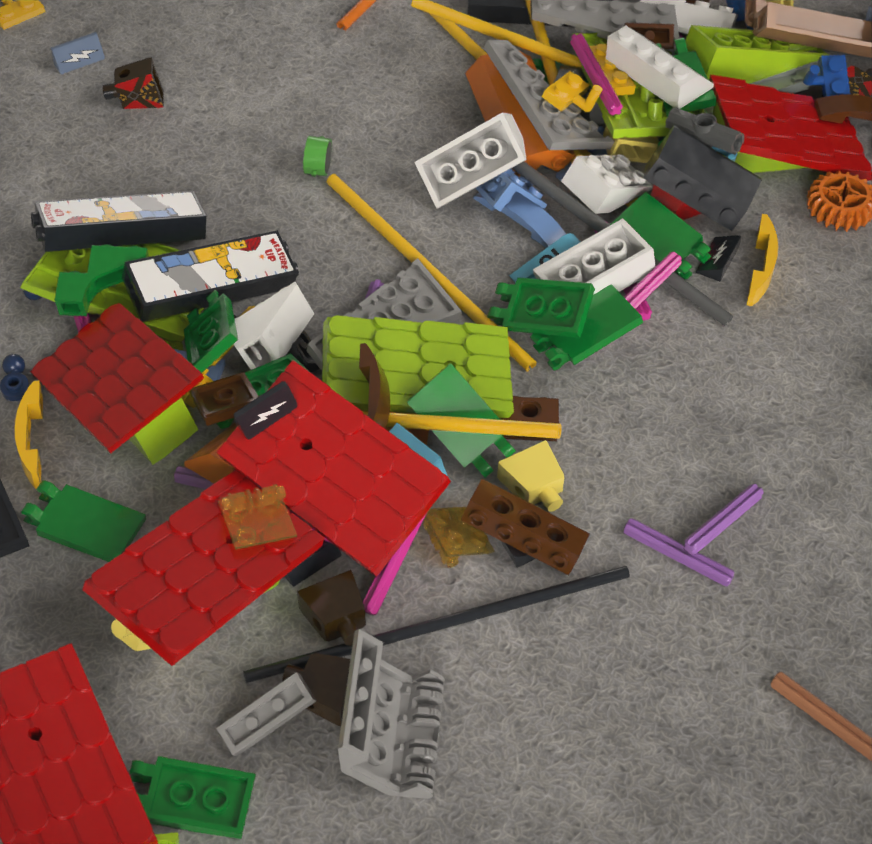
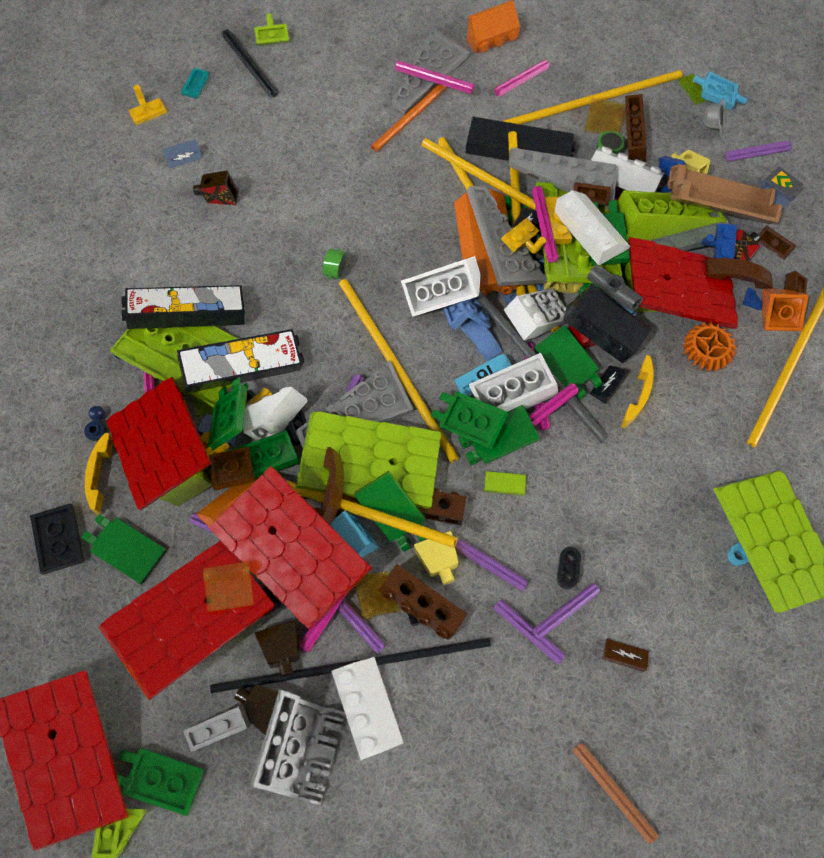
camera: 10 degrees right, 15 degrees up
(105, 269) = (165, 347): green arch -> none
(265, 410) = (245, 505): black slope -> none
(443, 574) = (361, 627): none -> medium lavender axle
(472, 665) = (367, 707): none -> white slope
(605, 385) = (505, 483): none -> lime tile
(609, 481) = (491, 564): none -> medium lavender axle
(715, 472) = (568, 568): none -> black plate
(815, 565) = (625, 655): none -> reddish brown slope

